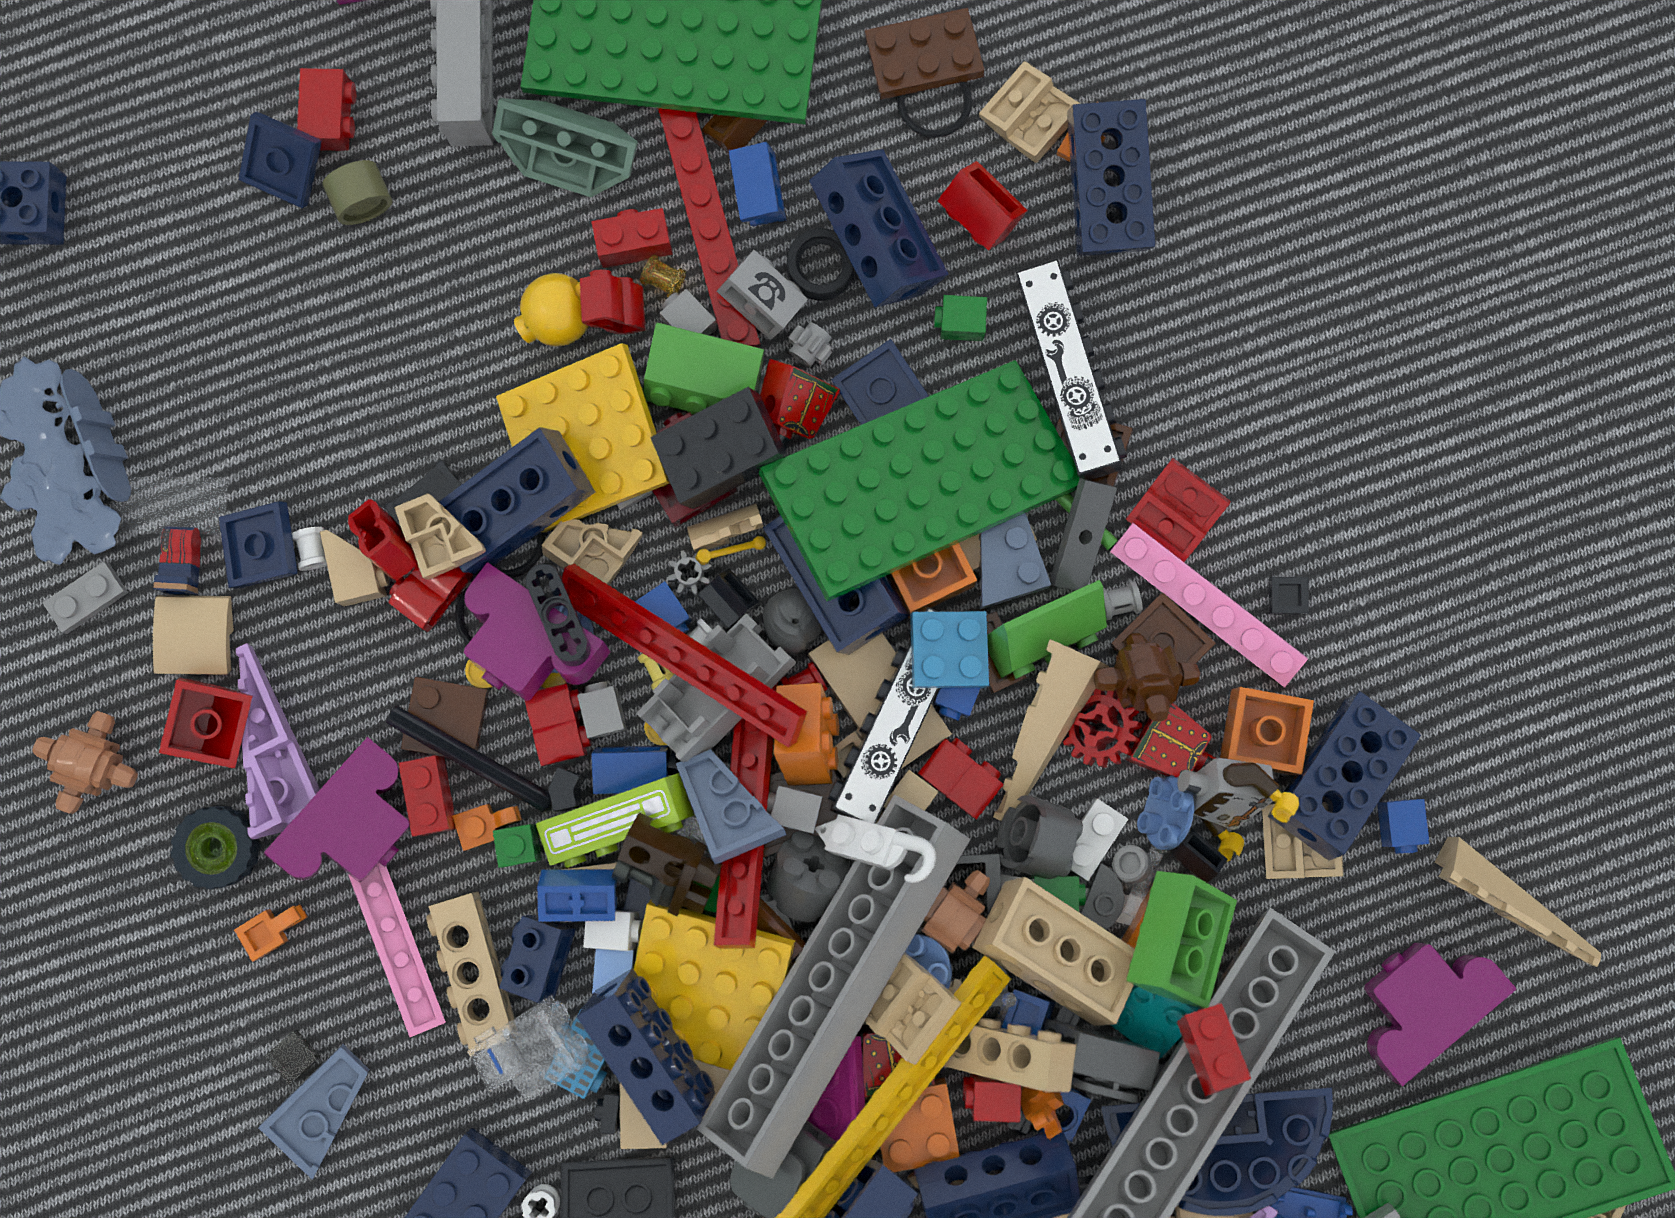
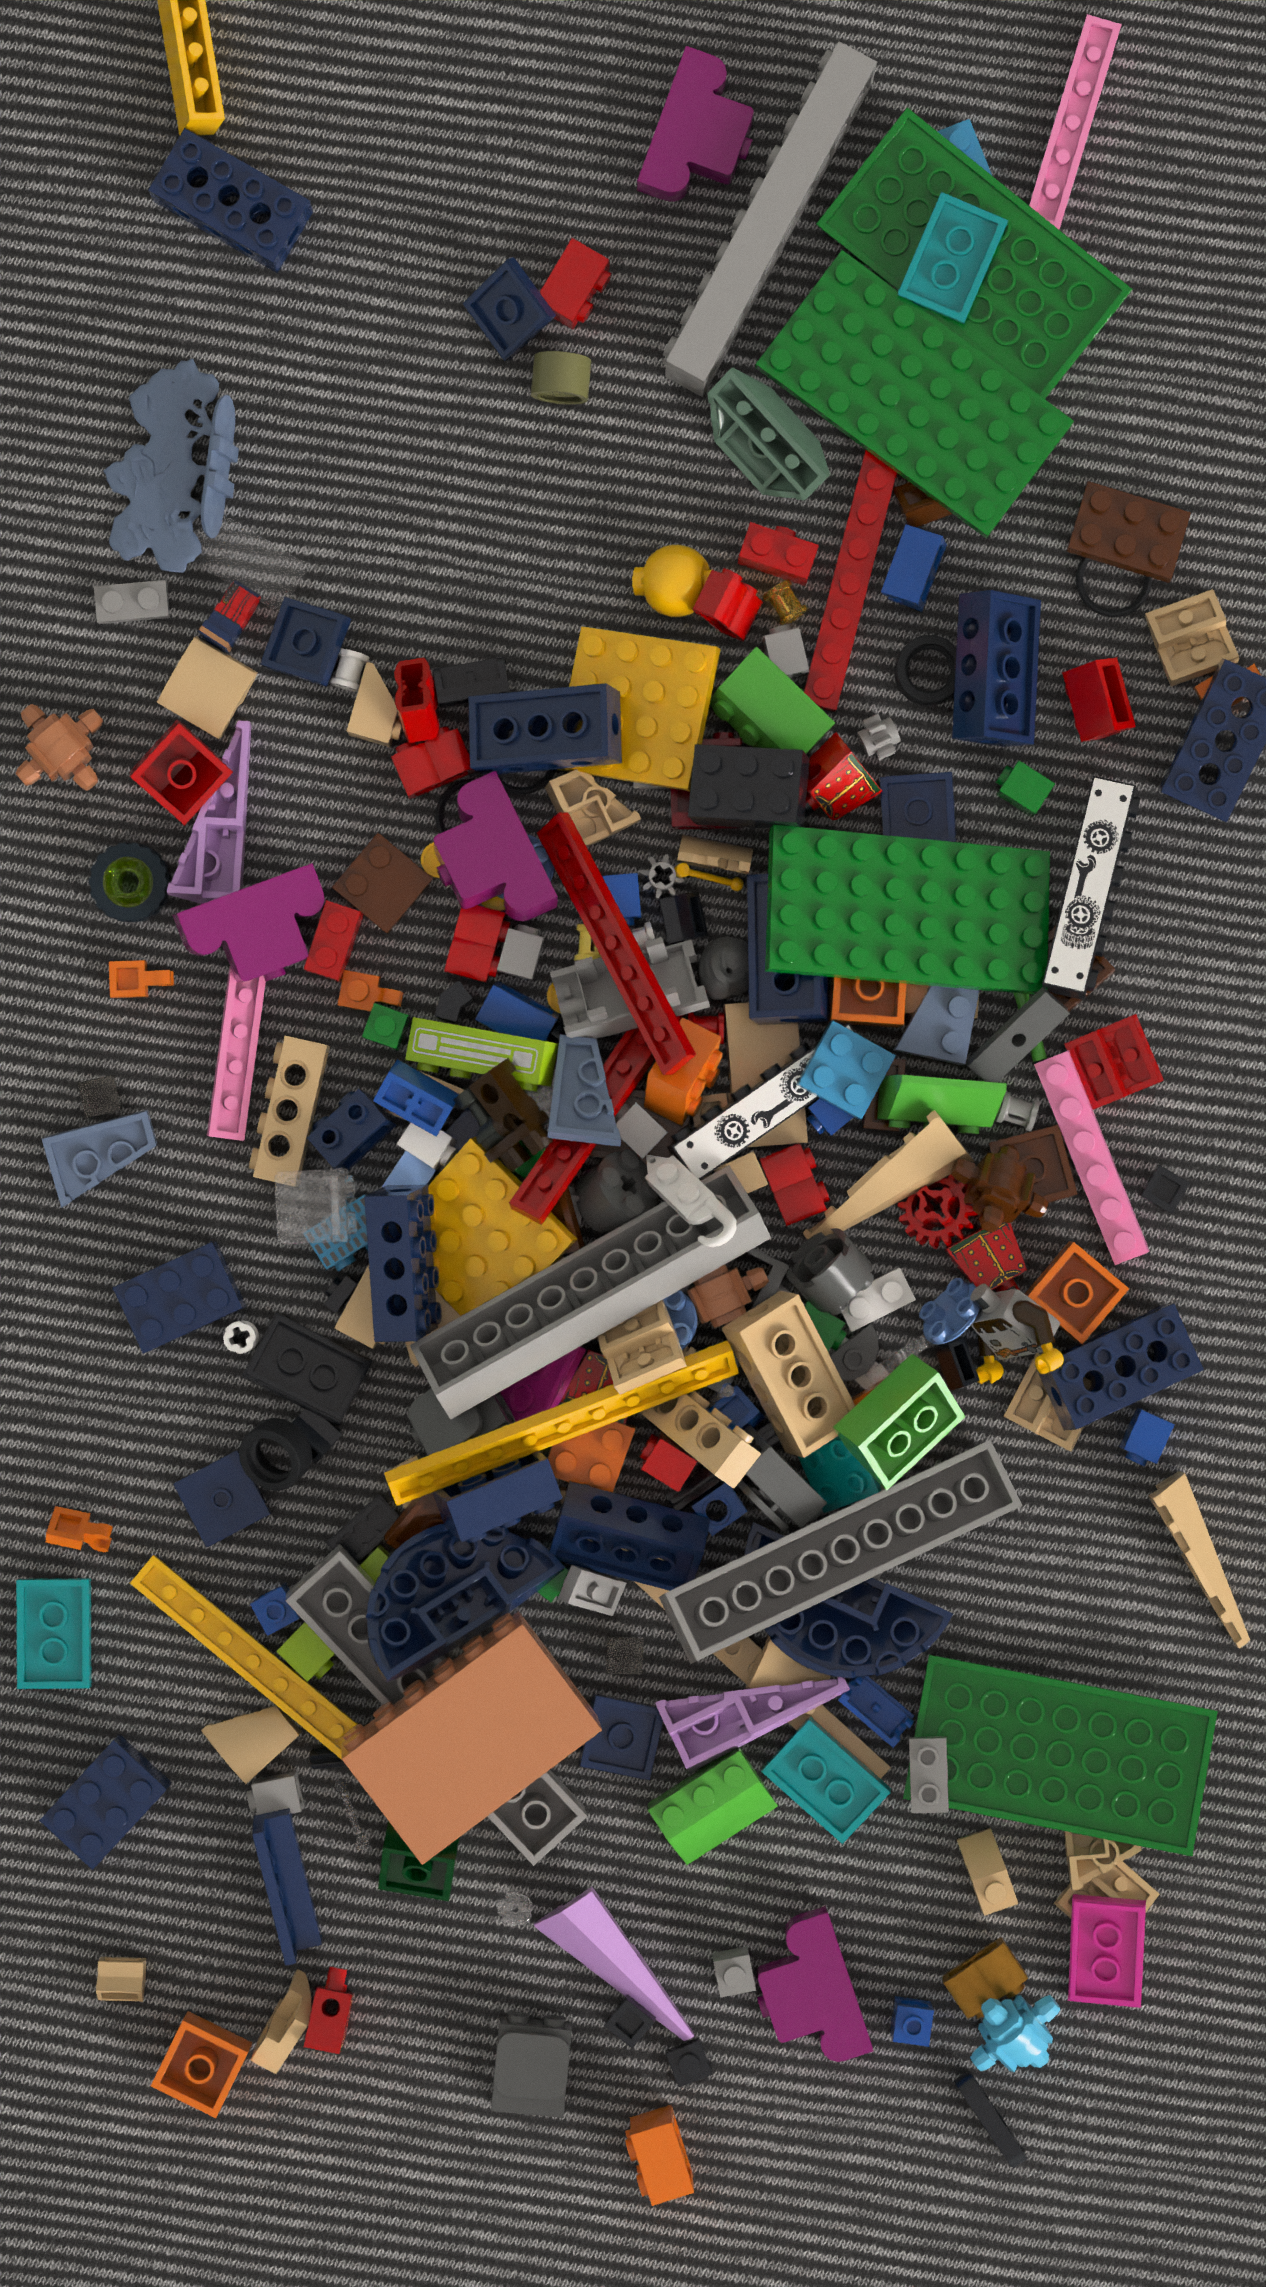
camera: 30 degrees right, 5 degrees up
(436, 536) = (465, 725): tan slope -> none
(469, 758) = (386, 930): black axle -> none
(497, 1057) = (276, 1193): clear brick -> none
(538, 596) = (524, 825): black beam -> none
(762, 294) = (862, 670): light grey brick -> none
(1040, 1109) = (702, 1490): orange plate -> none
(1131, 864) = (896, 1339): light grey tile -> none
(1213, 1049) = (871, 1522): red brick -> none
(1429, 1006) = (1077, 1598): magenta brick -> none

